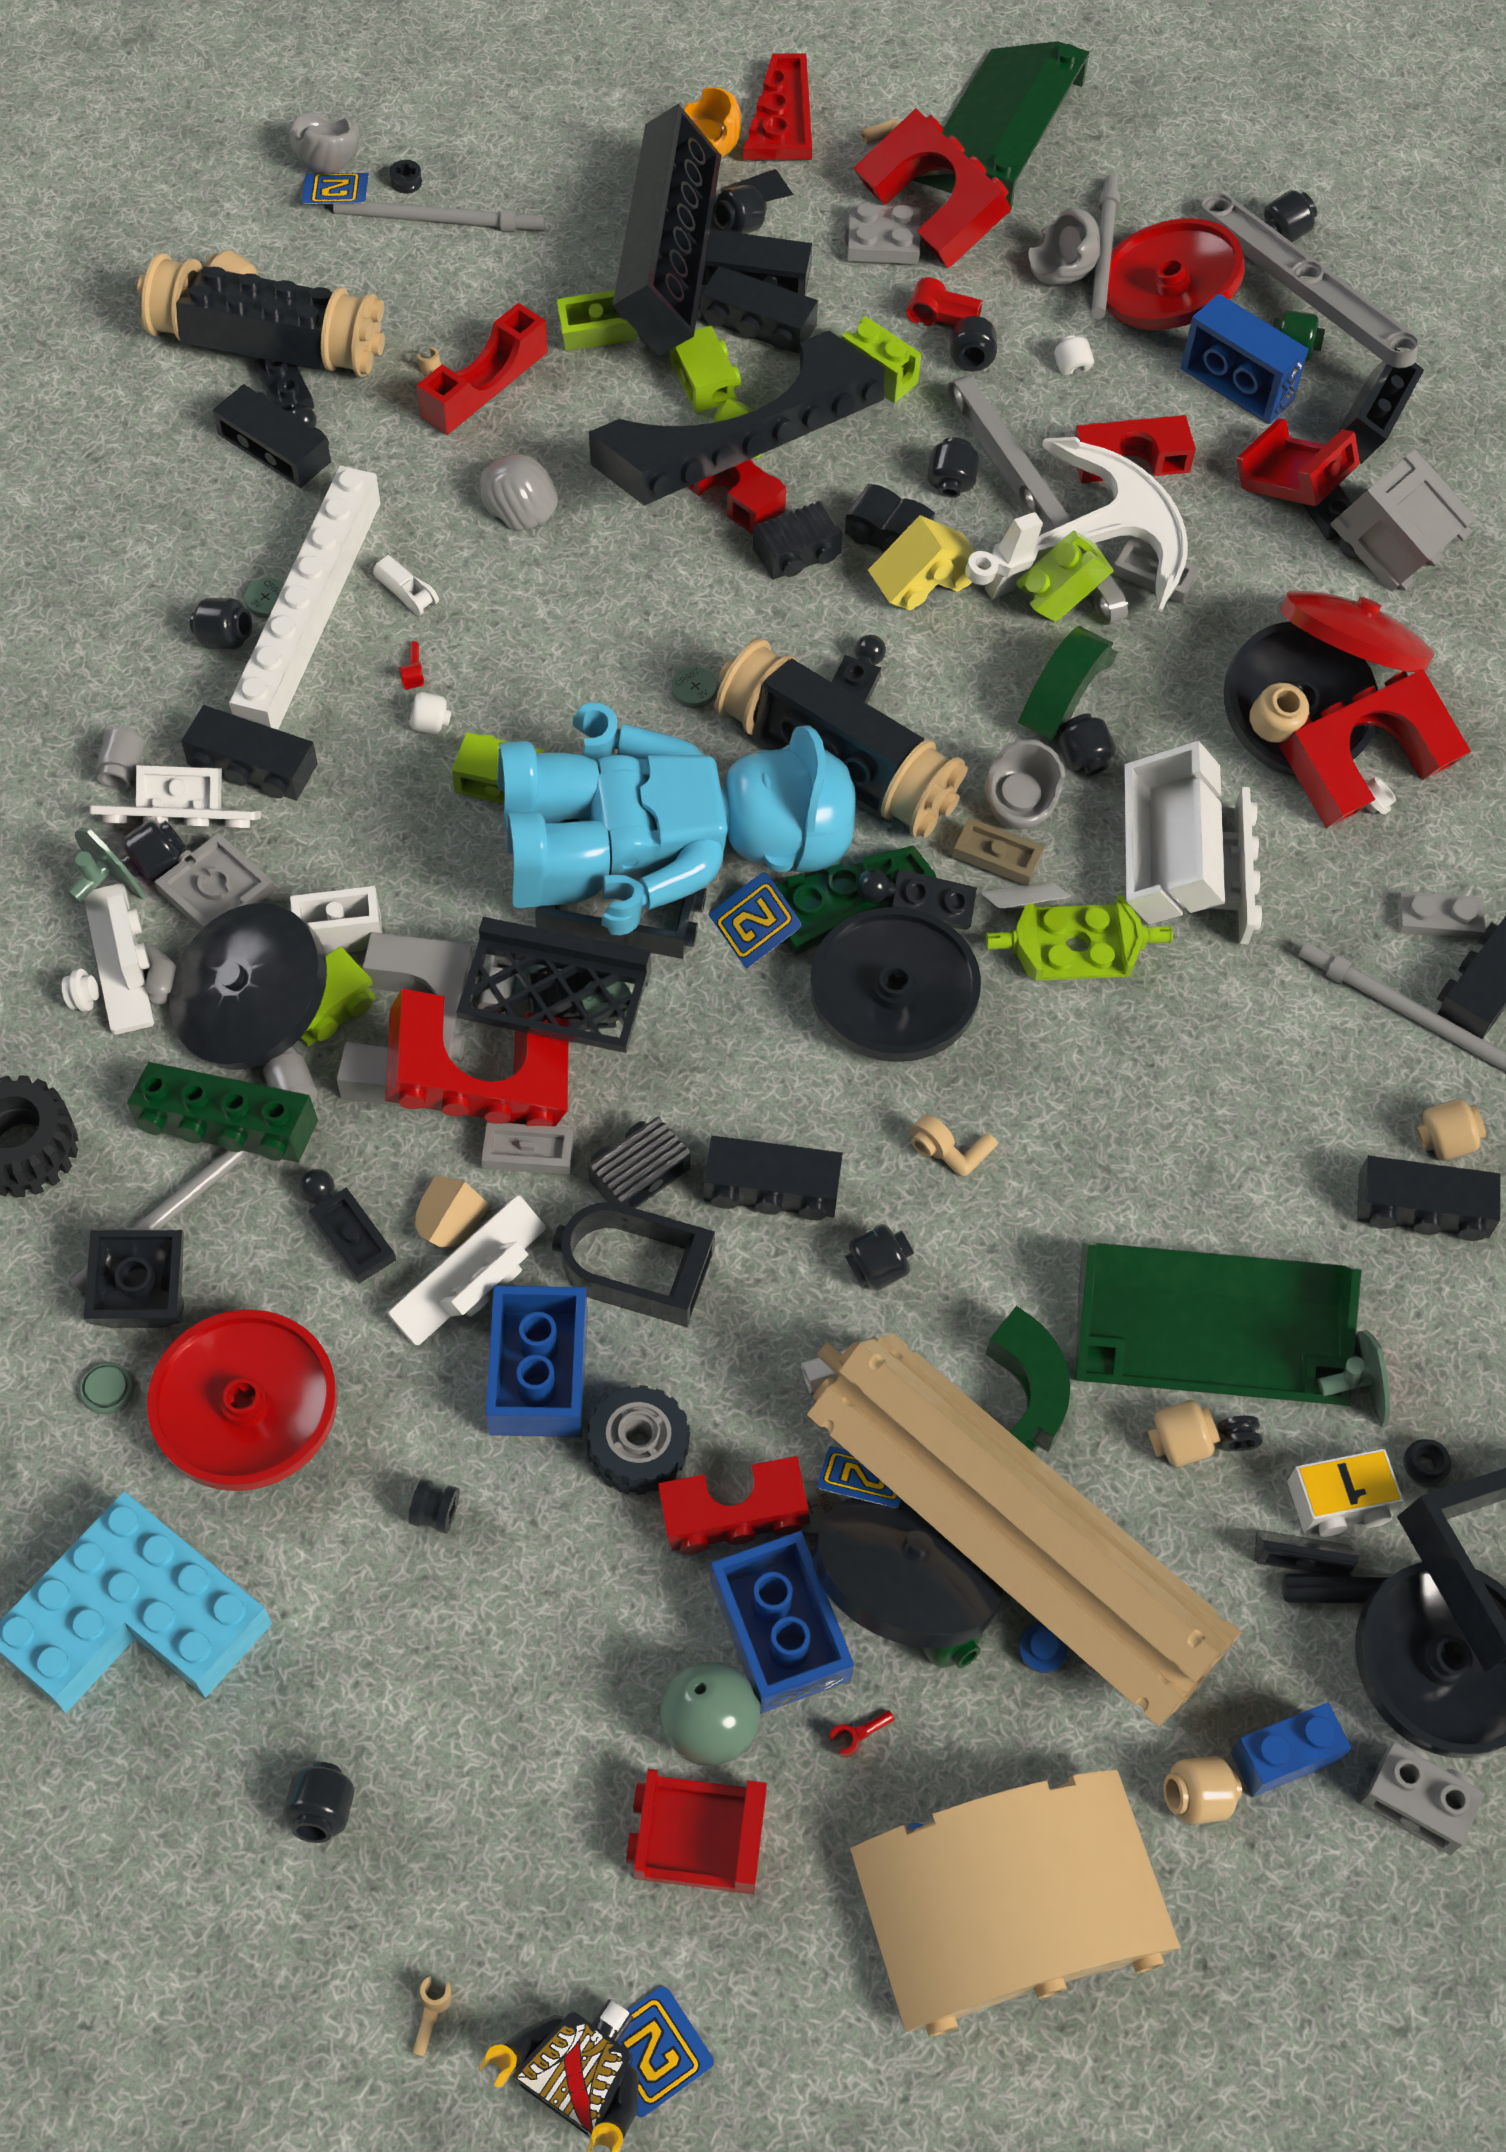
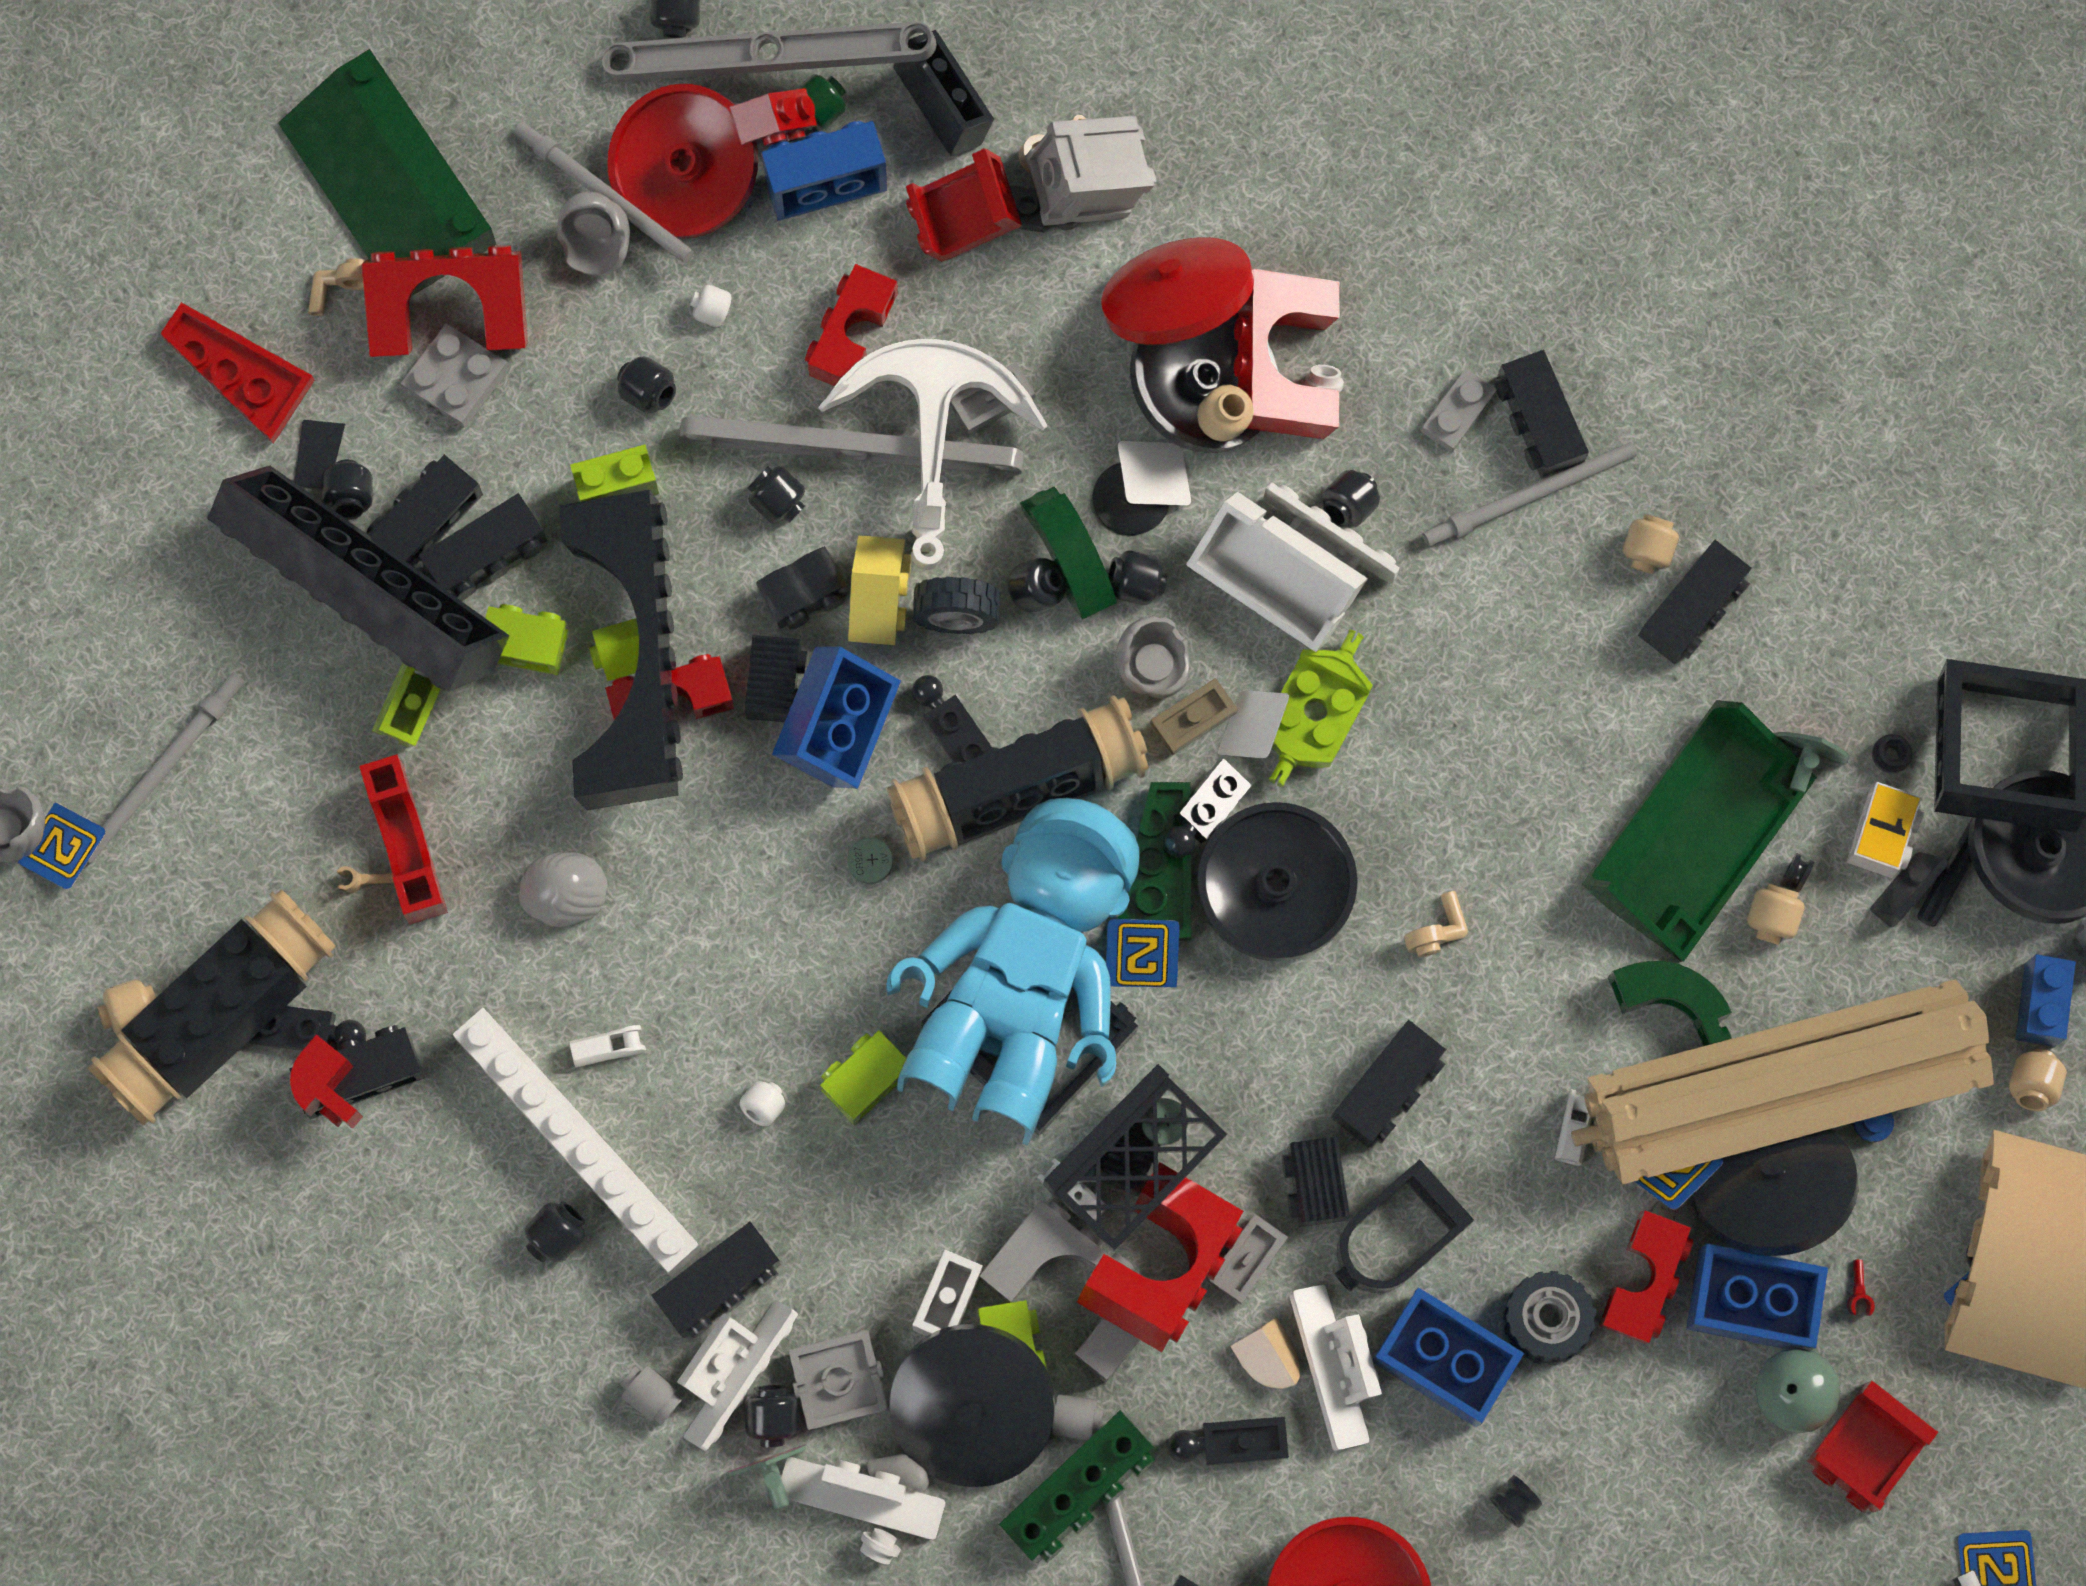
camera: 60 degrees left, 15 degrees up
(241, 393) = (315, 1077): none -> red brick
(262, 596) = (541, 1175): sand green piece -> none
(403, 168) = (92, 782): black bush -> none
(412, 674) = (710, 1092): red hand -> none
(717, 117) = (224, 449): light orange piece -> none
(794, 585) = (836, 717): none -> blue brick
(879, 1257) = (1505, 1045): black head -> none
(933, 303) = (576, 386): red piece -> none
(955, 619) = (956, 605): none -> black wheel
(1017, 671) = (1036, 585): none -> black head
(1065, 576) = (968, 484): lime brick -> none
(1152, 725) = (1117, 512): none -> black dish
(1188, 711) = (1154, 473): none -> white sticker
(1256, 287) = (774, 117): none -> red brick
(1289, 867) = (1351, 498): none -> black head

